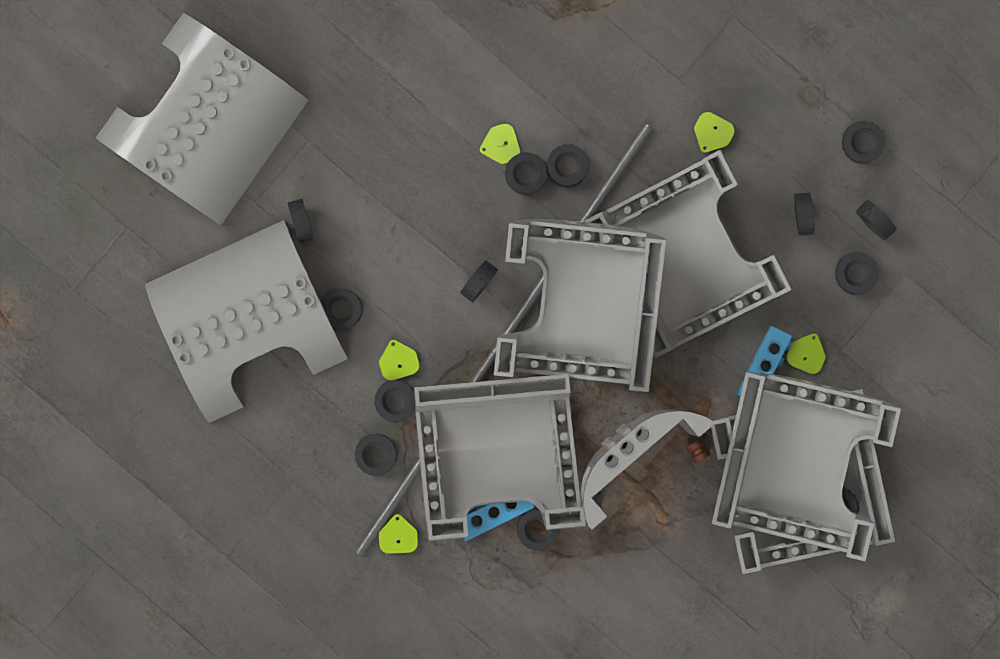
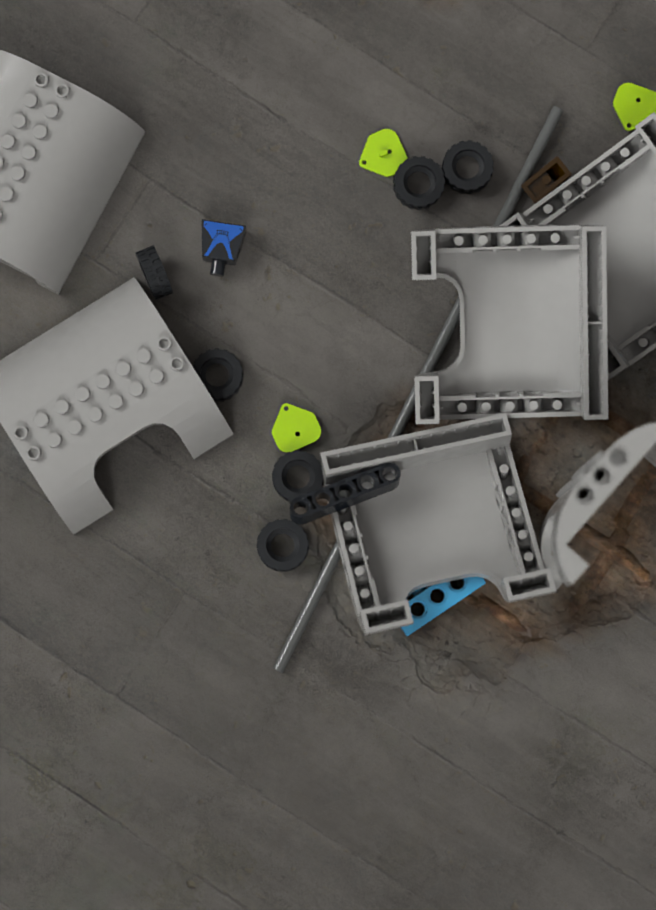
camera: 10 degrees left, 5 degrees down
(358, 203) = (221, 244): none -> torso
(398, 530) = (322, 635): lime piece -> none
(423, 429) = (351, 484): none -> black beam
(479, 281) = (380, 316): black tyre -> none
(524, 536) = (484, 626): black tyre -> none
(629, 186) = (546, 179): none -> dark brown slope

